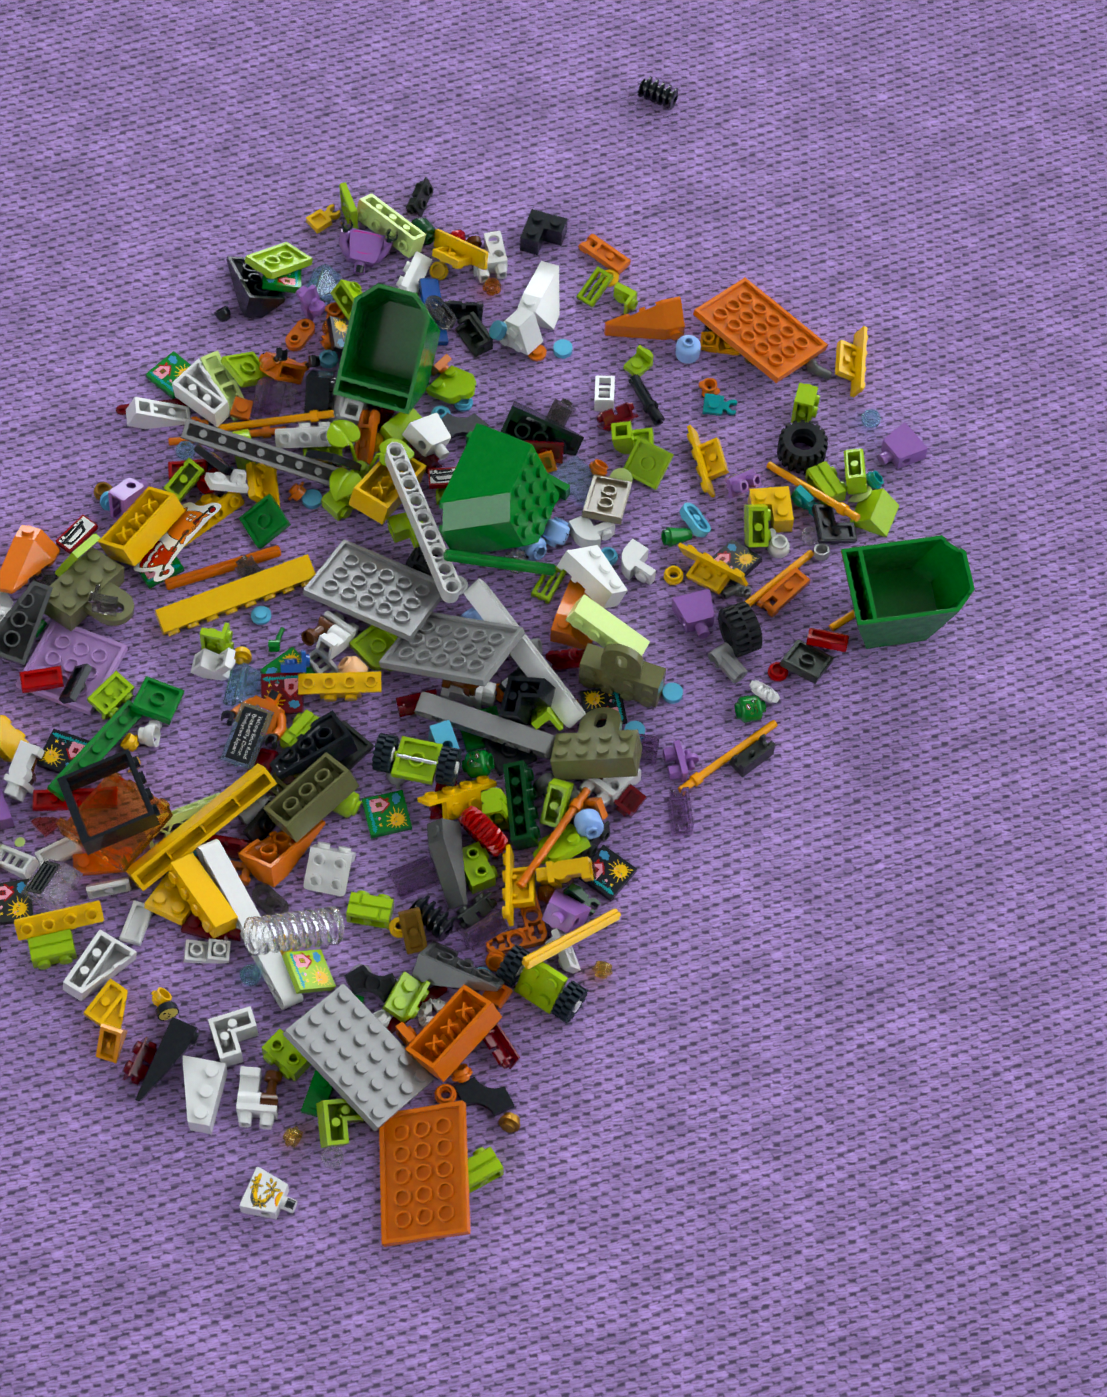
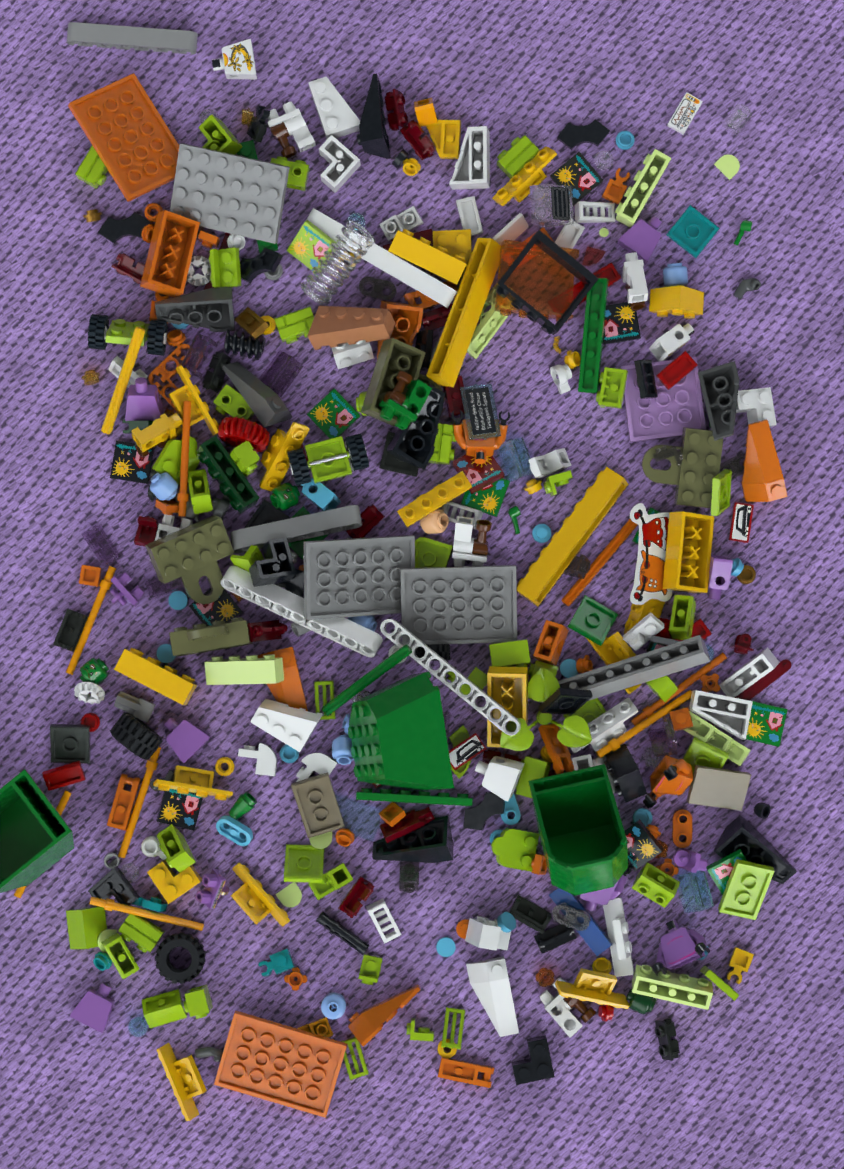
camera: 150 degrees right, 25 degrees up
(28, 705) = (671, 341): none -> white torso
(137, 1026) = (423, 146): none -> dark red hinge
(148, 434) = (742, 644): none -> dark red hinge
(157, 700) = (574, 407): green tile -> none
(247, 342) = (718, 788): none -> tile
(288, 1116) = (257, 126): none -> black plate
(291, 665) = (478, 491): blue bracket -> none
(311, 762) = (404, 406): none -> green hips
(314, 520) = (551, 642): none -> orange brick
(320, 868) = (349, 325): none -> nougat wedge
(357, 529) = (510, 654): none -> lime brick
(366, 1284) = (132, 37): none -> light grey beam
(678, 449) = (290, 895): none -> yellowish green piece
(691, 321) = (358, 1074): none -> lime tile
(693, 670) = (158, 678): none -> yellow brick
(706, 792) = (90, 575): none -> orange plate
(839, 421) = (163, 1008): none -> lime panel

